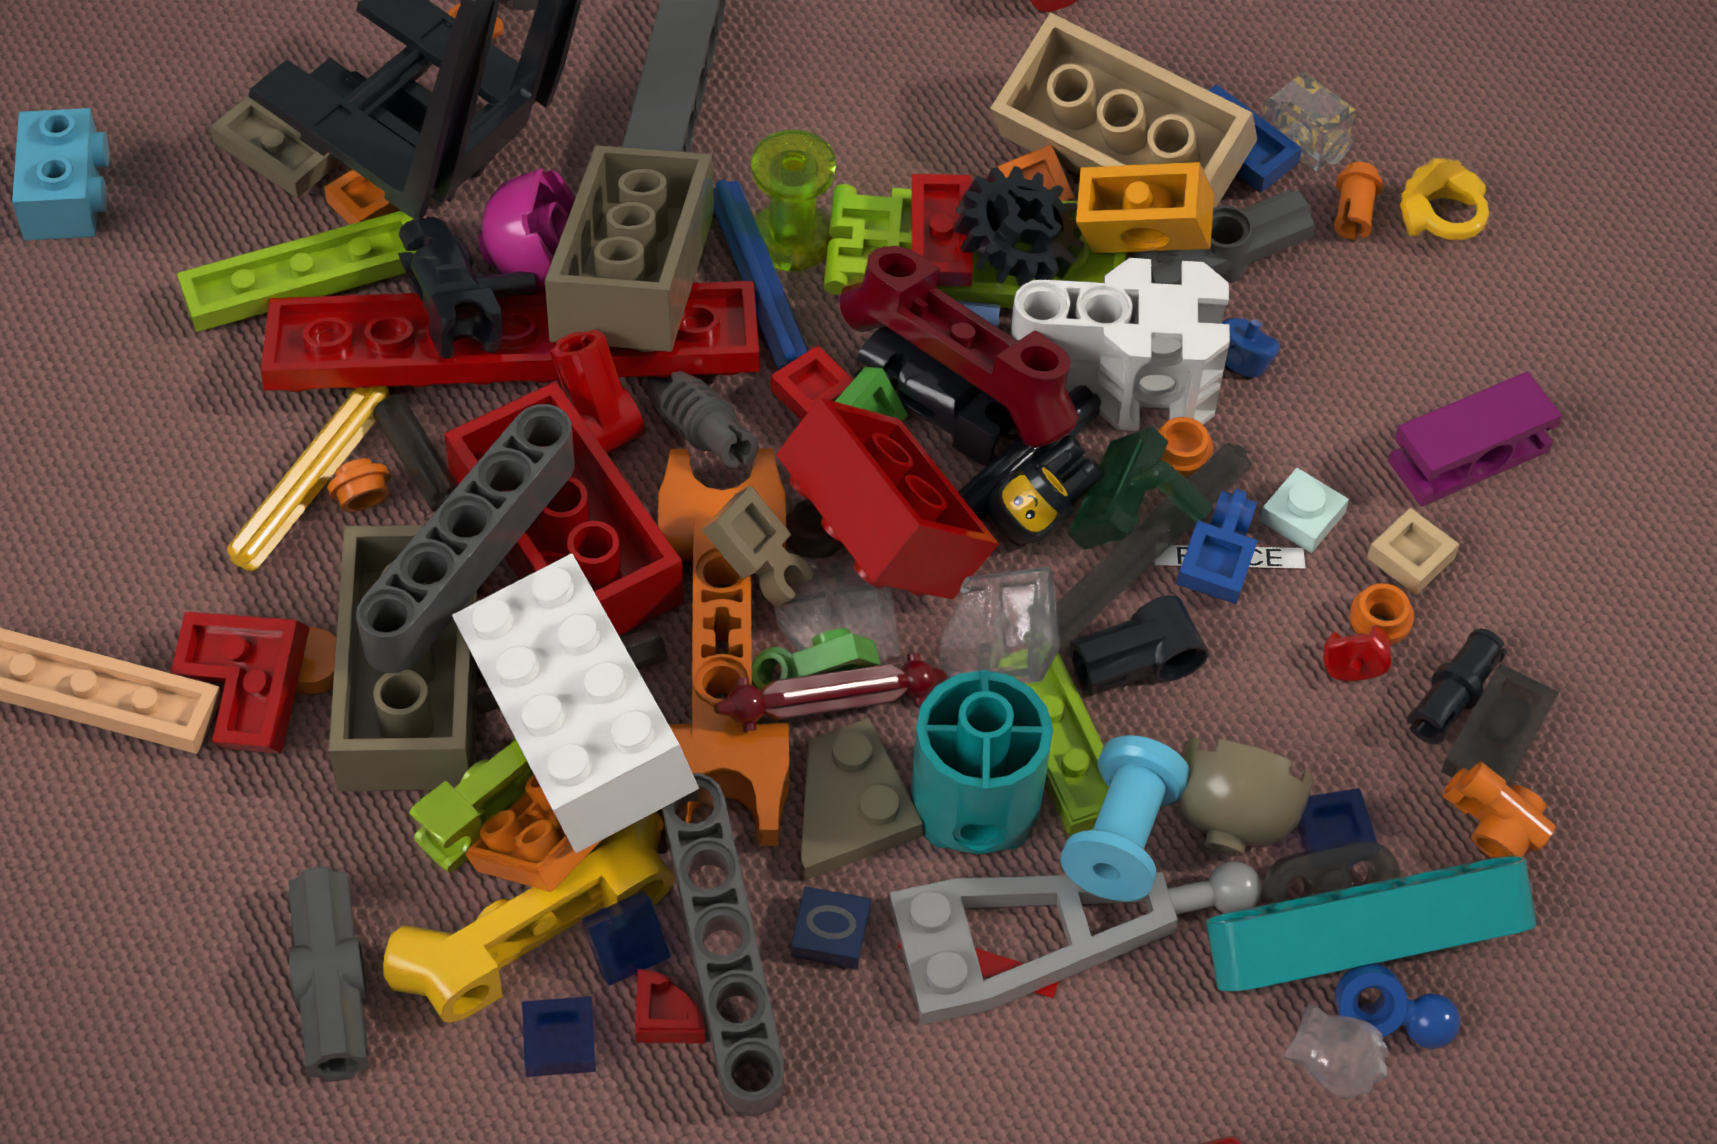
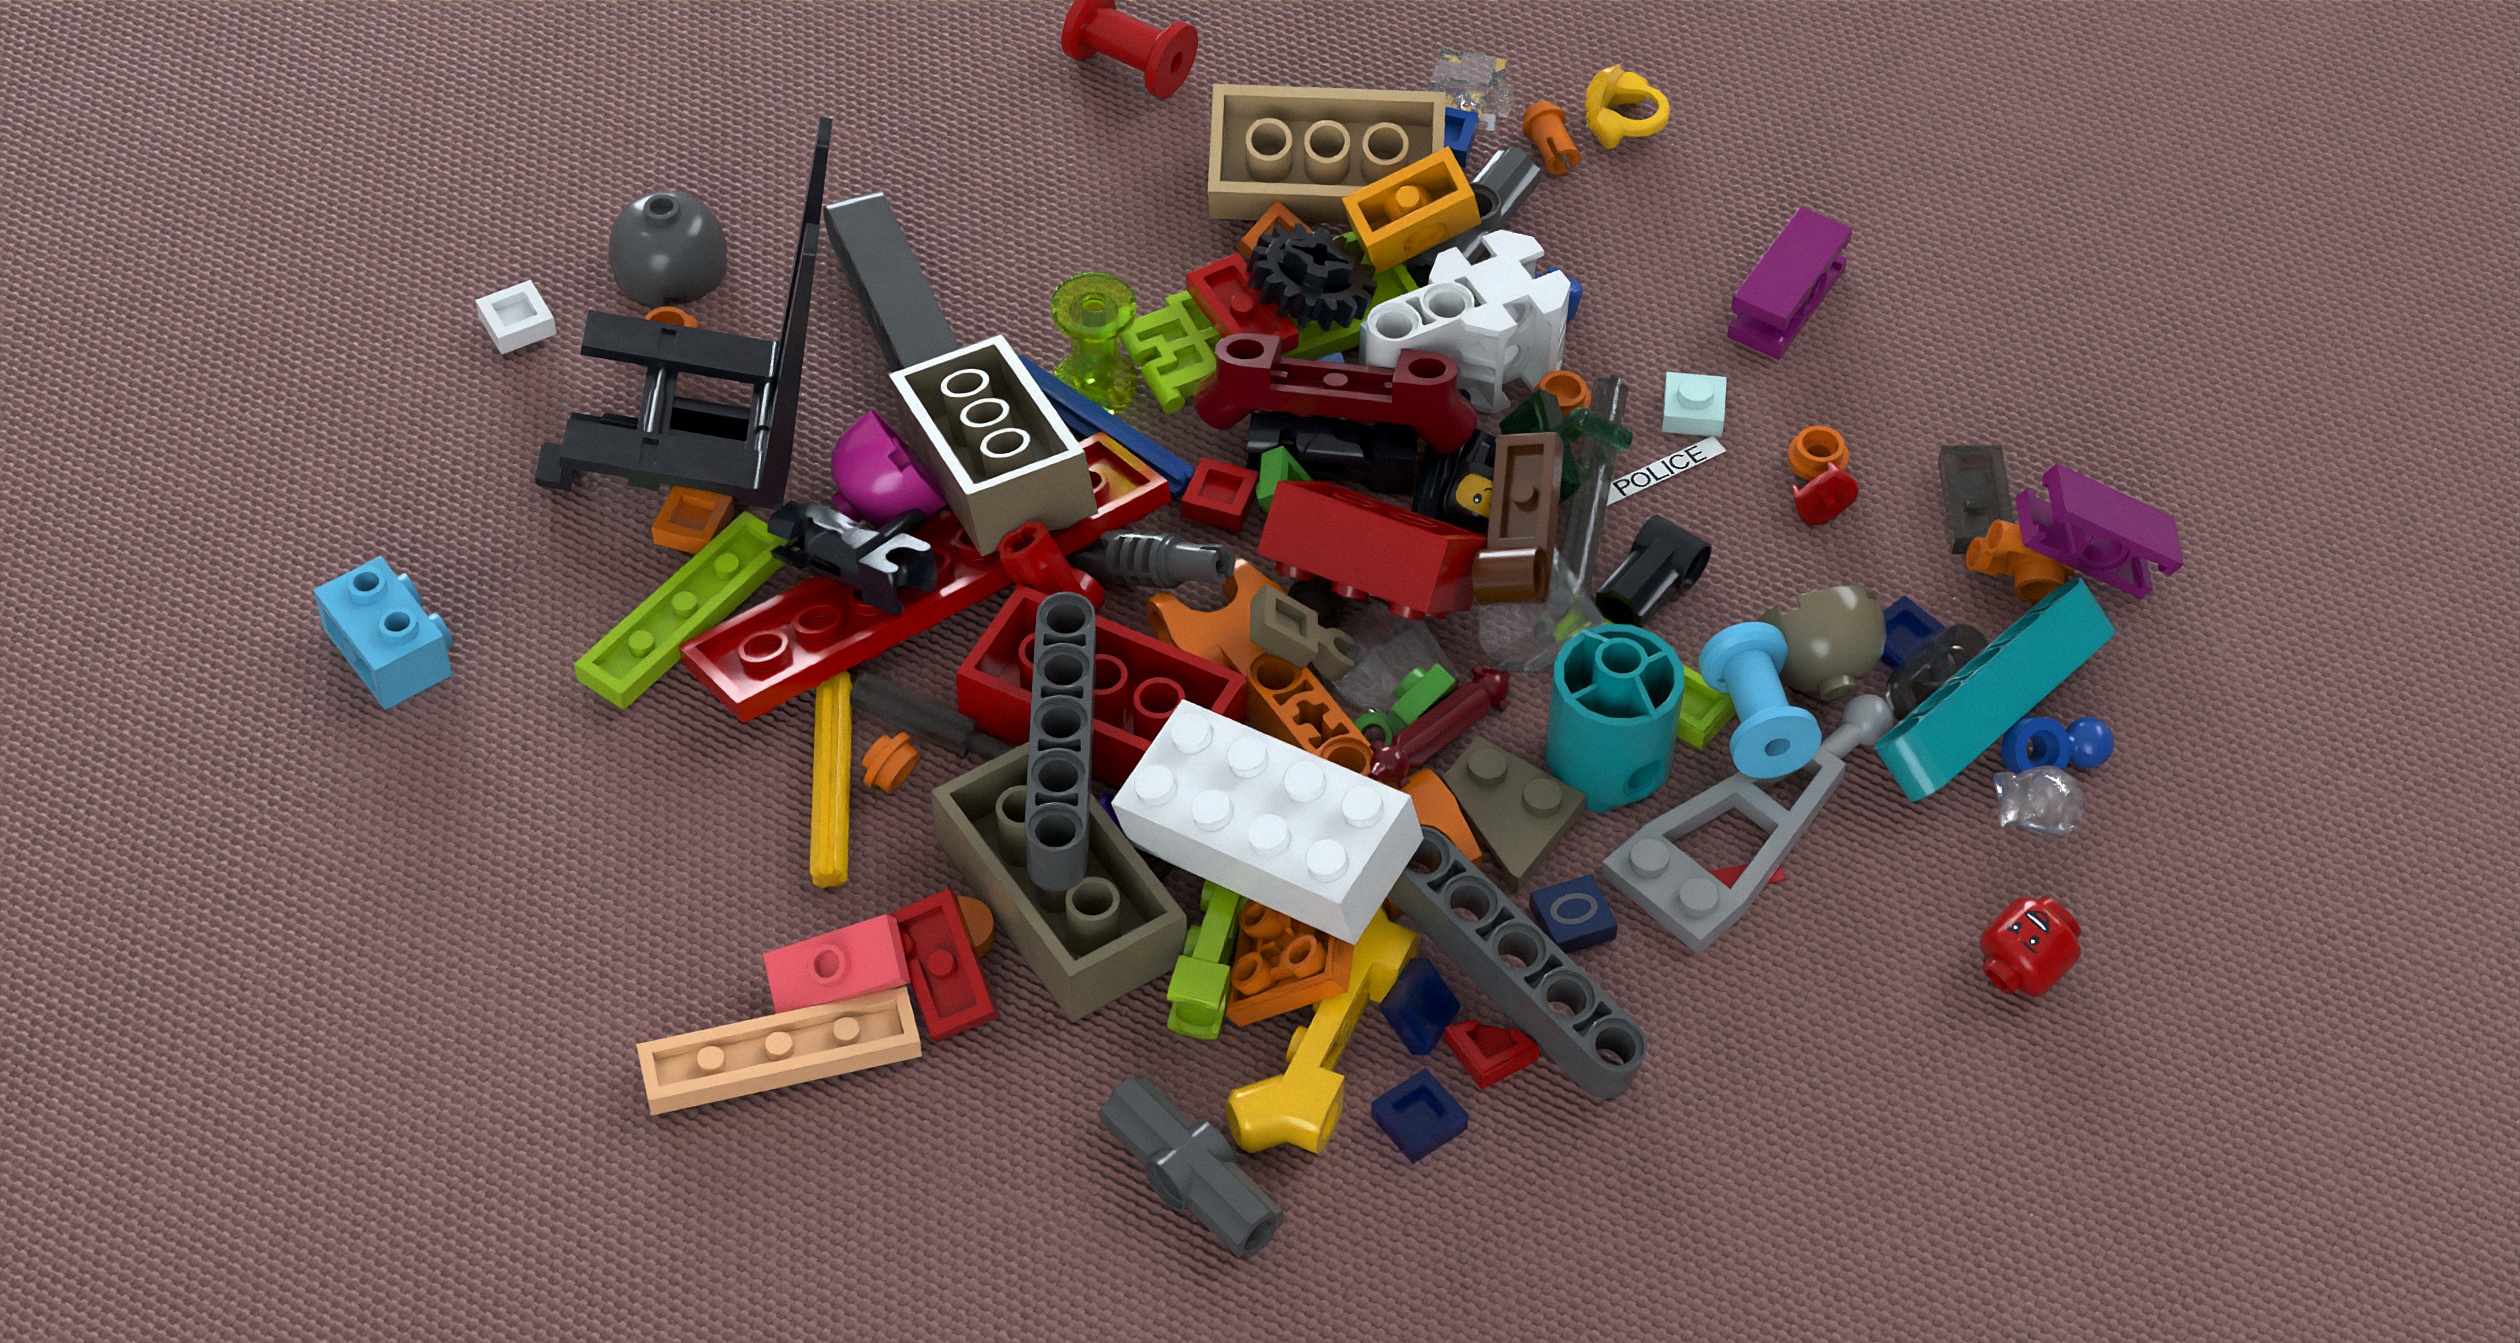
camera: 30 degrees left, 5 degrees down
(174, 639) = (837, 965): none -> coral plate
(270, 147) = (568, 515): dark tan plate -> none
(1028, 544) = (1521, 521): none -> reddish brown plate
(1220, 550) = (1658, 470): blue plate -> none
(1413, 551) = (1806, 393): tan plate -> none
(1456, 686) = (1918, 481): black pin -> none
(1579, 823) = (2099, 531): none -> magenta piece

